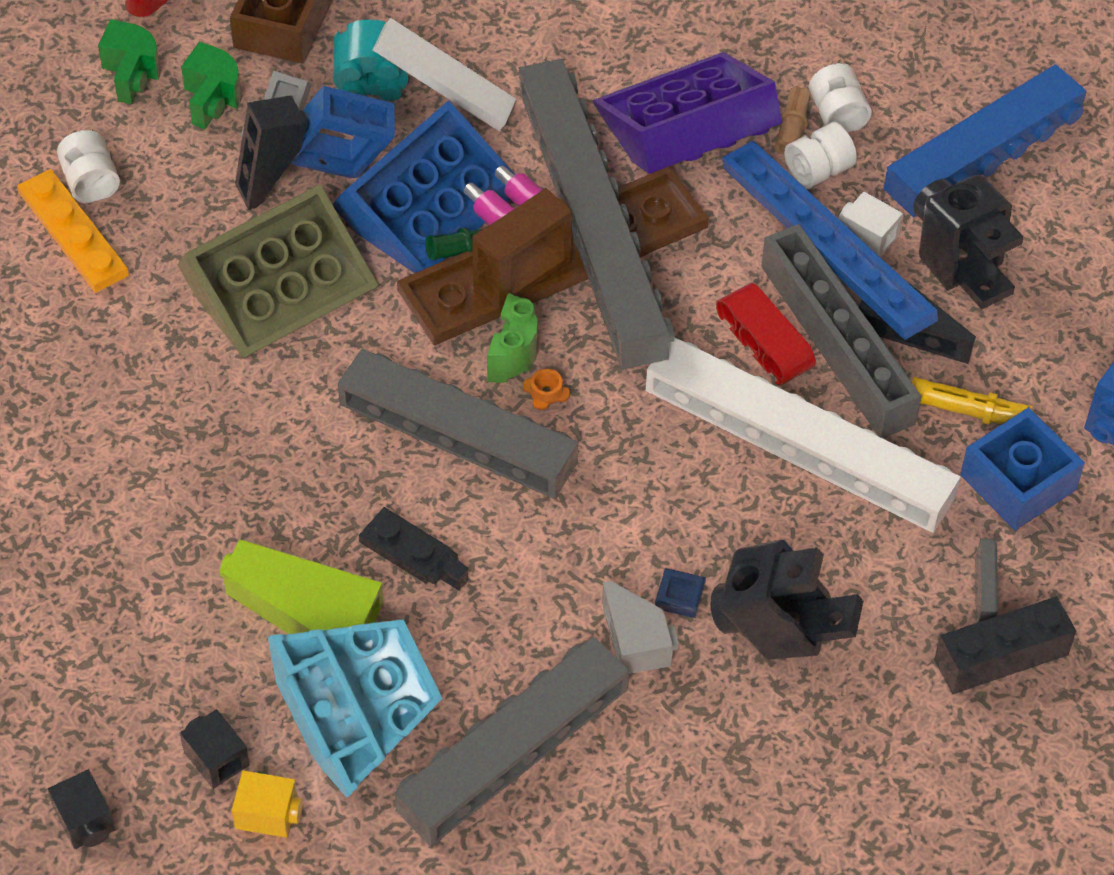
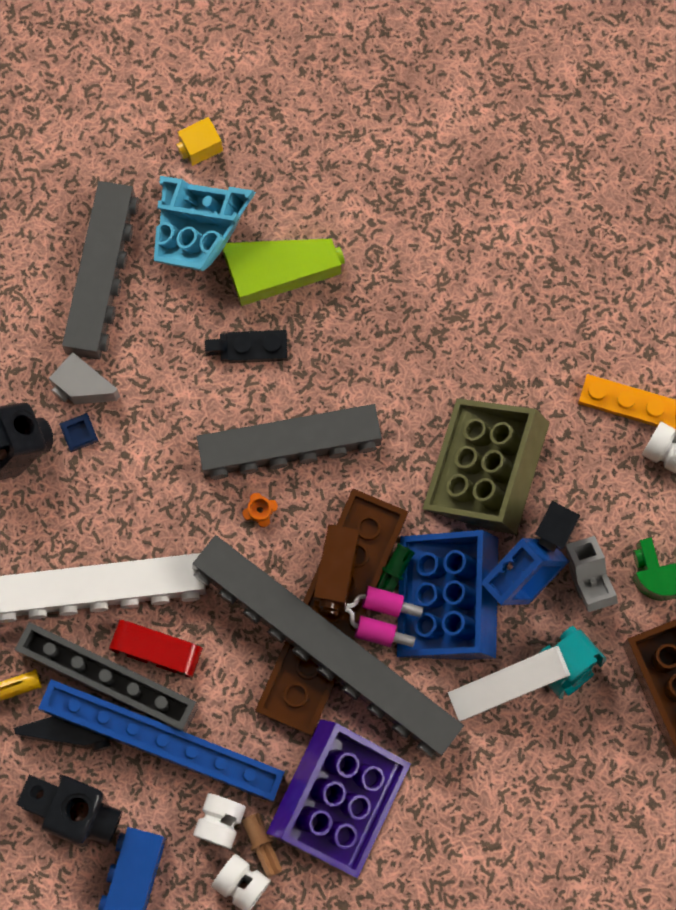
camera: 145 degrees right, 20 degrees up
(82, 810) = (289, 71): black brick -> none
(214, 748) = (253, 150): black brick -> none
(516, 346) = (297, 526): bright green cylinder -> none
(872, 222) = (148, 787): white brick -> none

